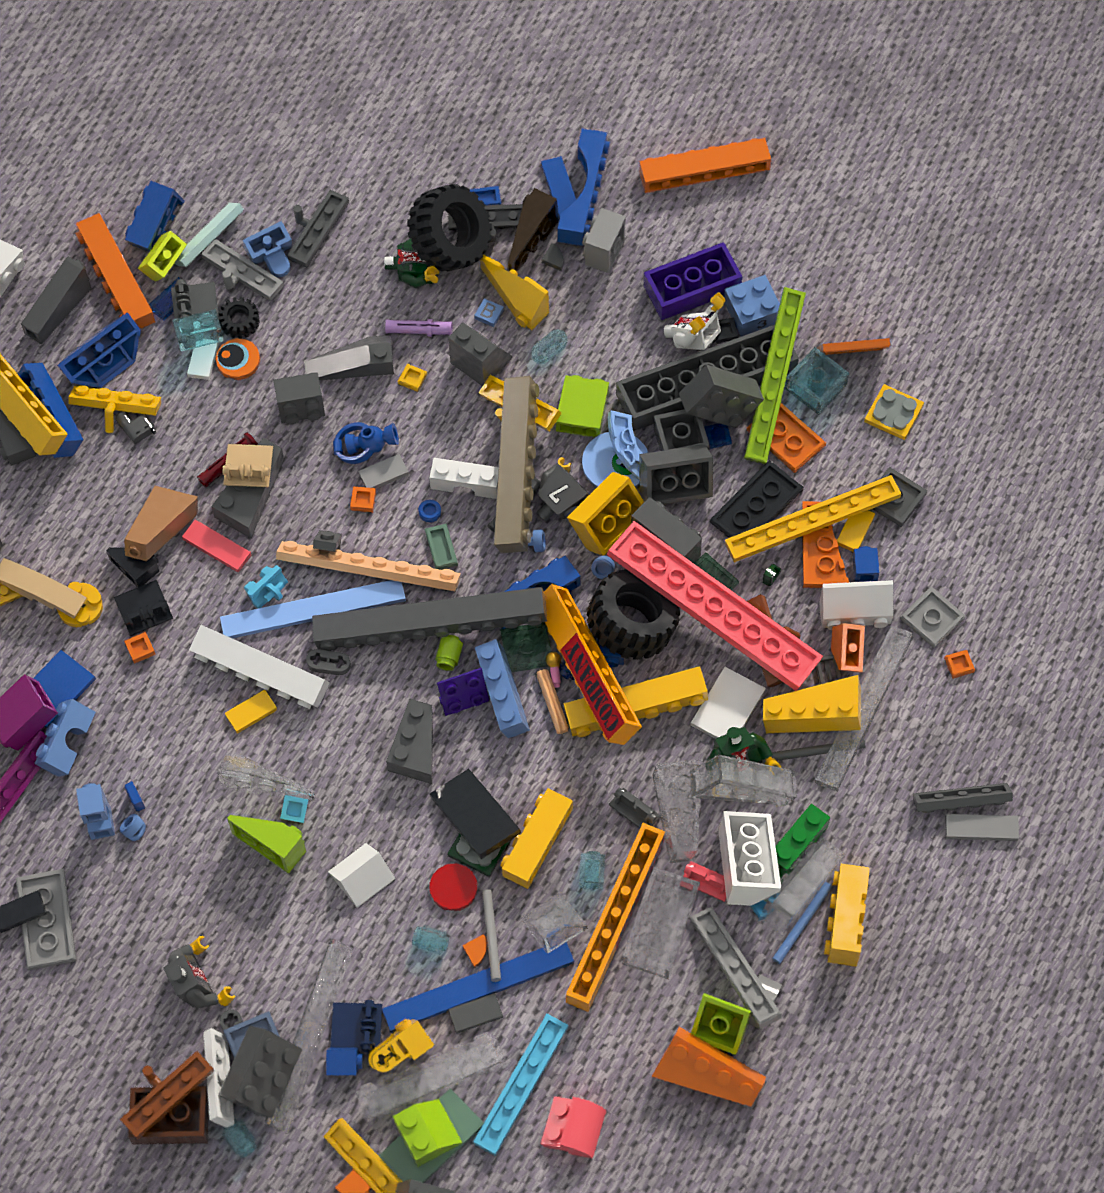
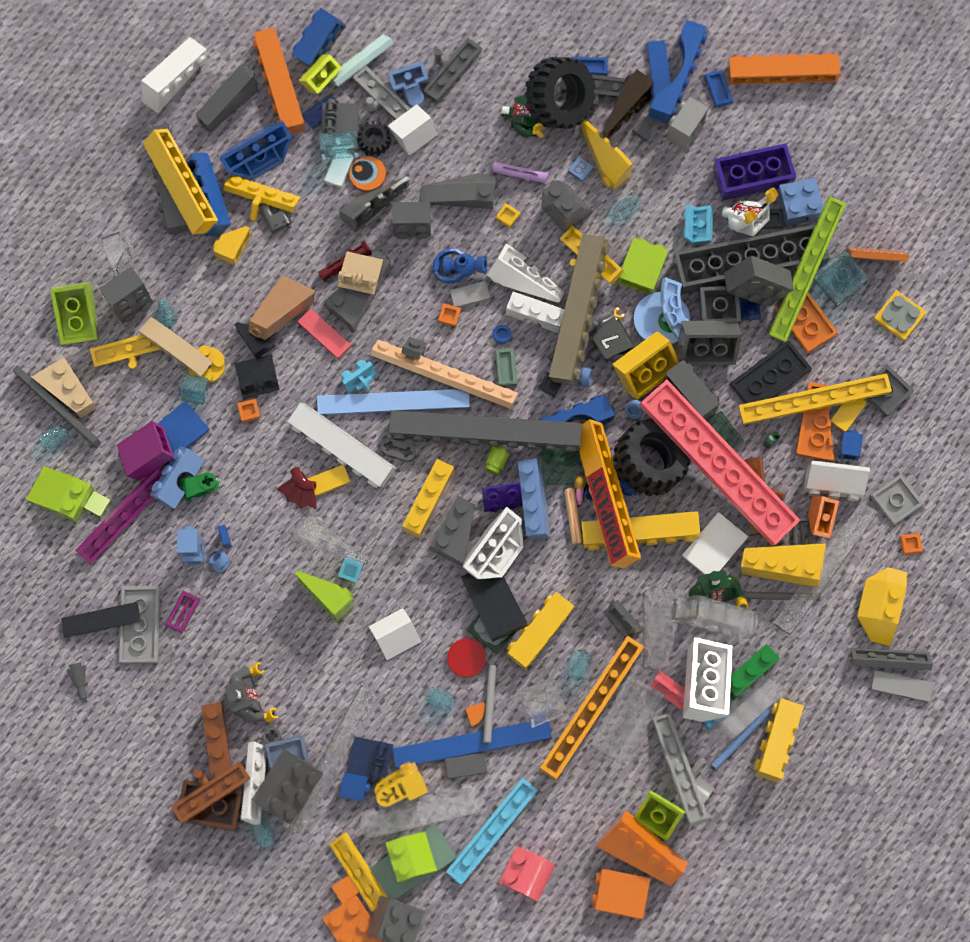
camera: 10 degrees right, 10 degrees up
(22, 552) = (167, 315): none -> clear light blue cone
(69, 633) = (194, 389): none -> clear light blue brick
(88, 463) = (231, 245): none -> yellow slope
(90, 914) = (190, 597): none -> magenta tile
(91, 744) = (197, 486): none -> green piece
(162, 1031) = (216, 738): none -> dark orange brick
(216, 727) = (299, 489): none -> dark red arm
(242, 394) = (365, 207): none -> dark grey wedge
(283, 300) = (413, 129): none -> white slope
(374, 710) = (428, 498): none -> yellow brick
(429, 438) = (514, 273): none -> white wedge
(467, 750) = (496, 547): none -> white wedge
(496, 559) = (549, 386): none -> black tile
(633, 199) = (718, 88): none -> blue tile
(638, 350) = (698, 224): none -> medium azure bracket
(692, 1129) = (621, 894): none -> orange brick
(939, 738) = (882, 604): none -> yellow wedge

